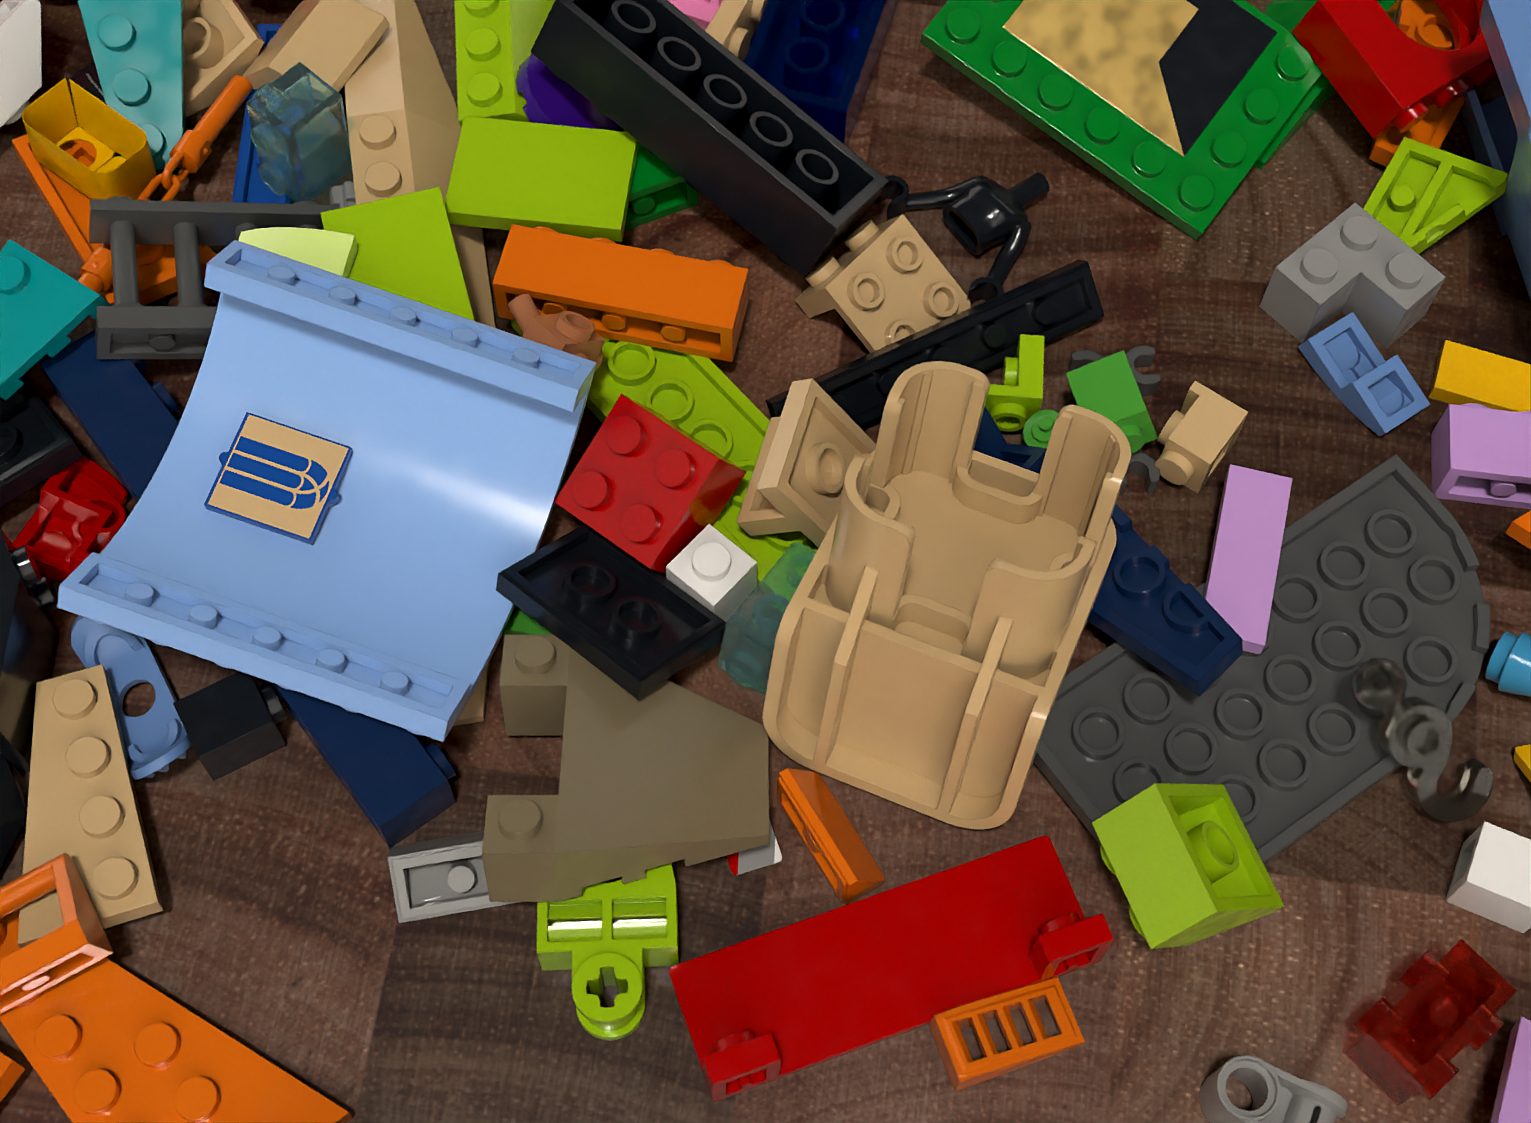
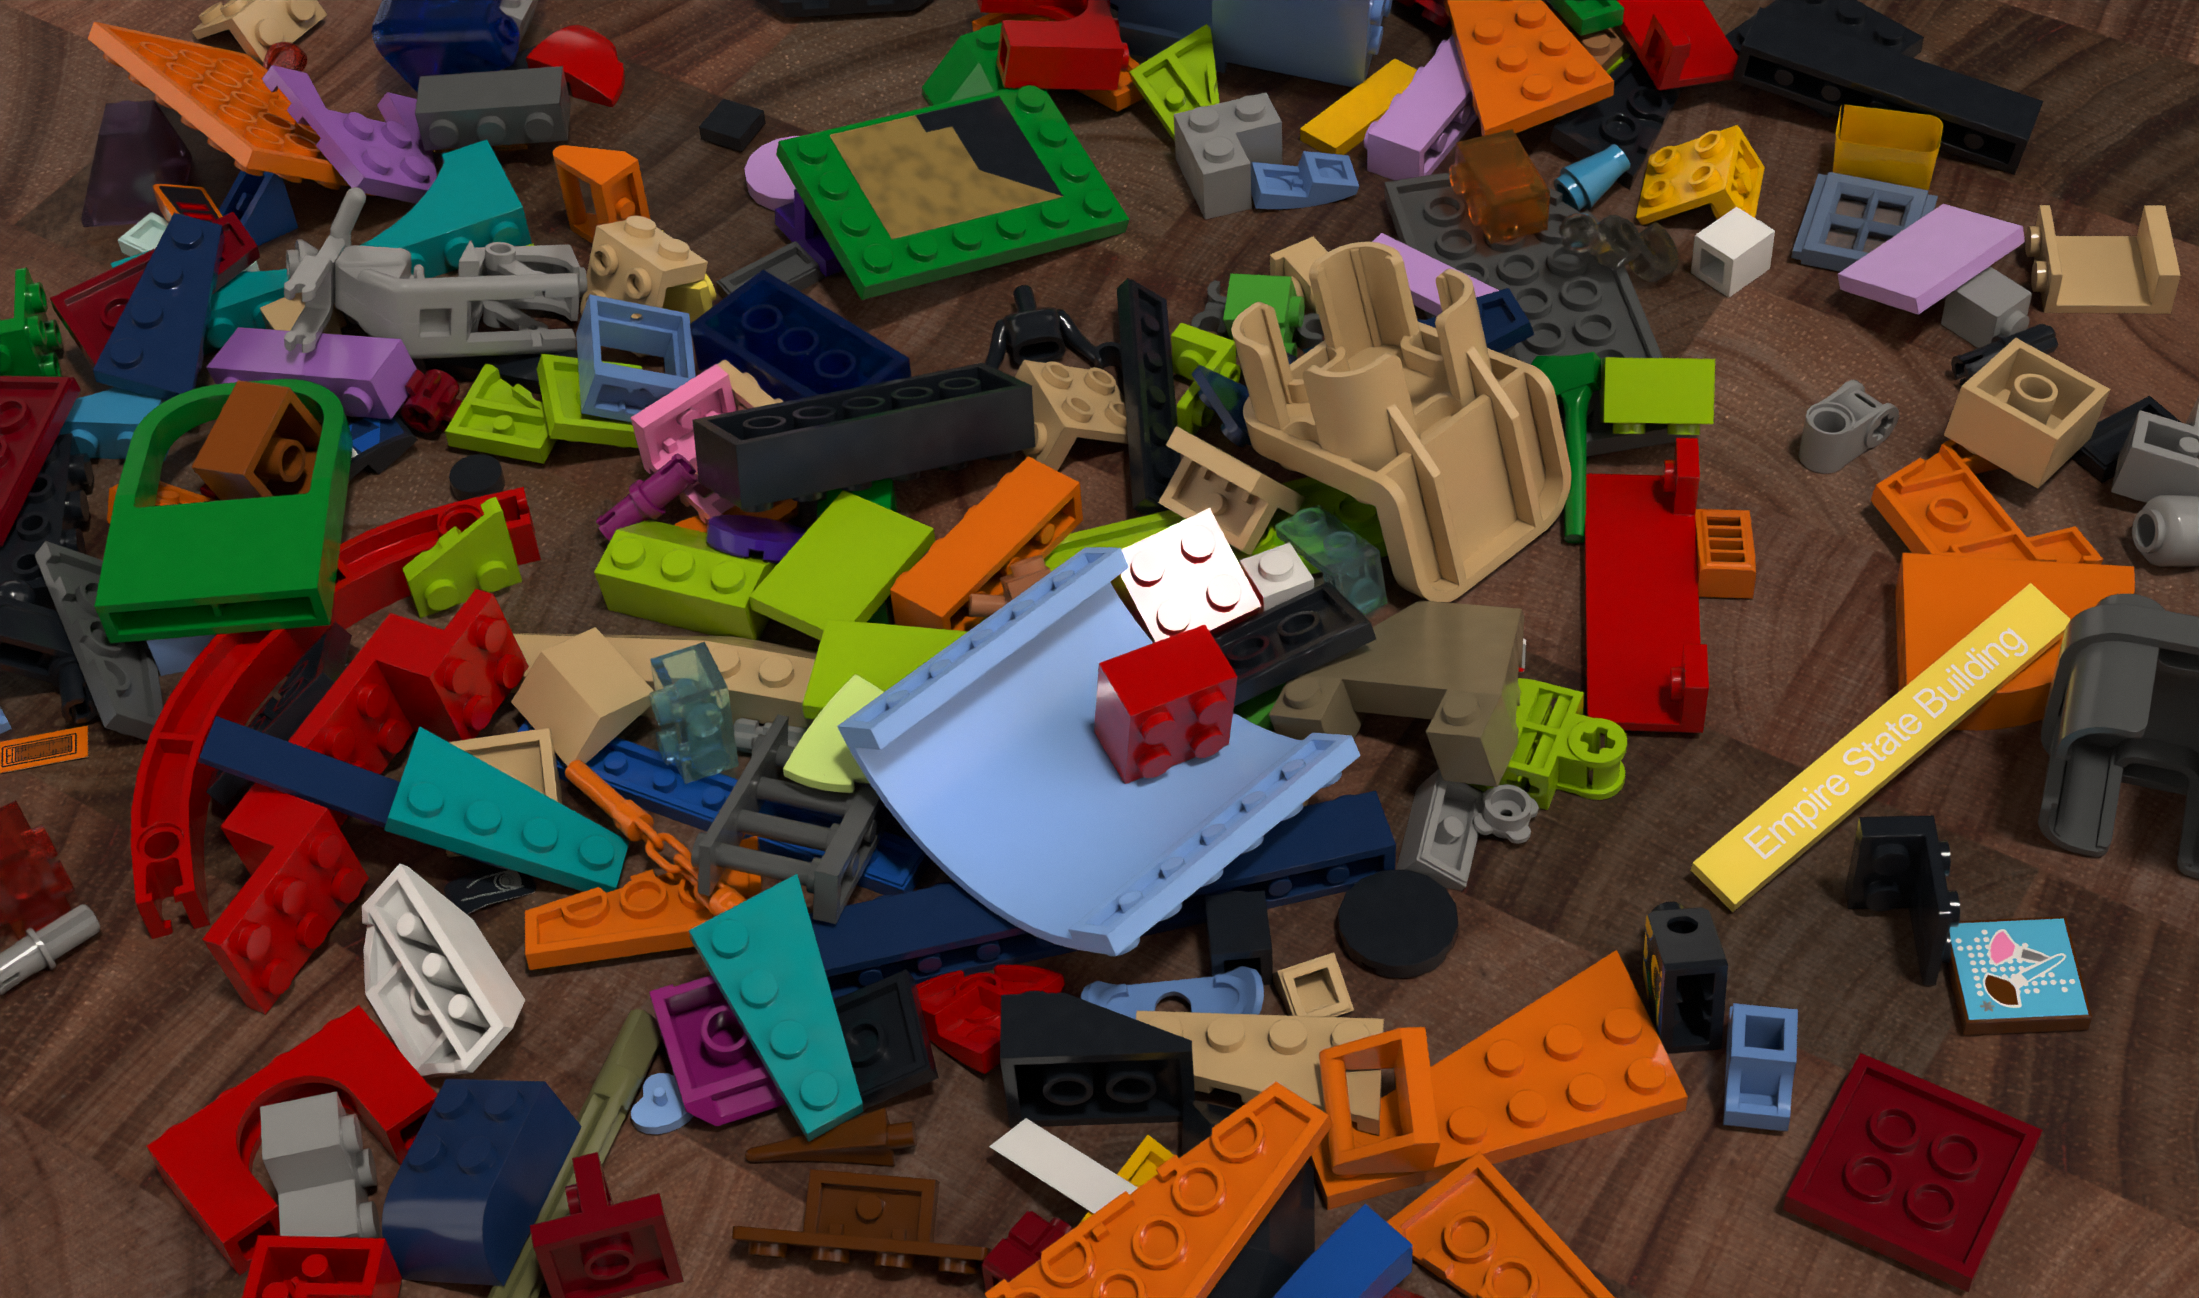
camera: 60 degrees left, 15 degrees down
(53, 122) = (565, 867): yellow piece -> none
(207, 819) = (1313, 988): none -> tan slope
(278, 478) = (1044, 814): piece -> none
(319, 872) = (1398, 923): none -> black tile
(424, 523) = (1165, 704): none -> red brick
(494, 945) = (1506, 813): none -> light grey plate
(828, 834) = (1537, 596): orange slope -> none
(1149, 755) = (1574, 382): none -> green piece
(1427, 571) = (1500, 186): none -> clear orange brick
(1445, 1008) = (1821, 319): clear red brick -> none

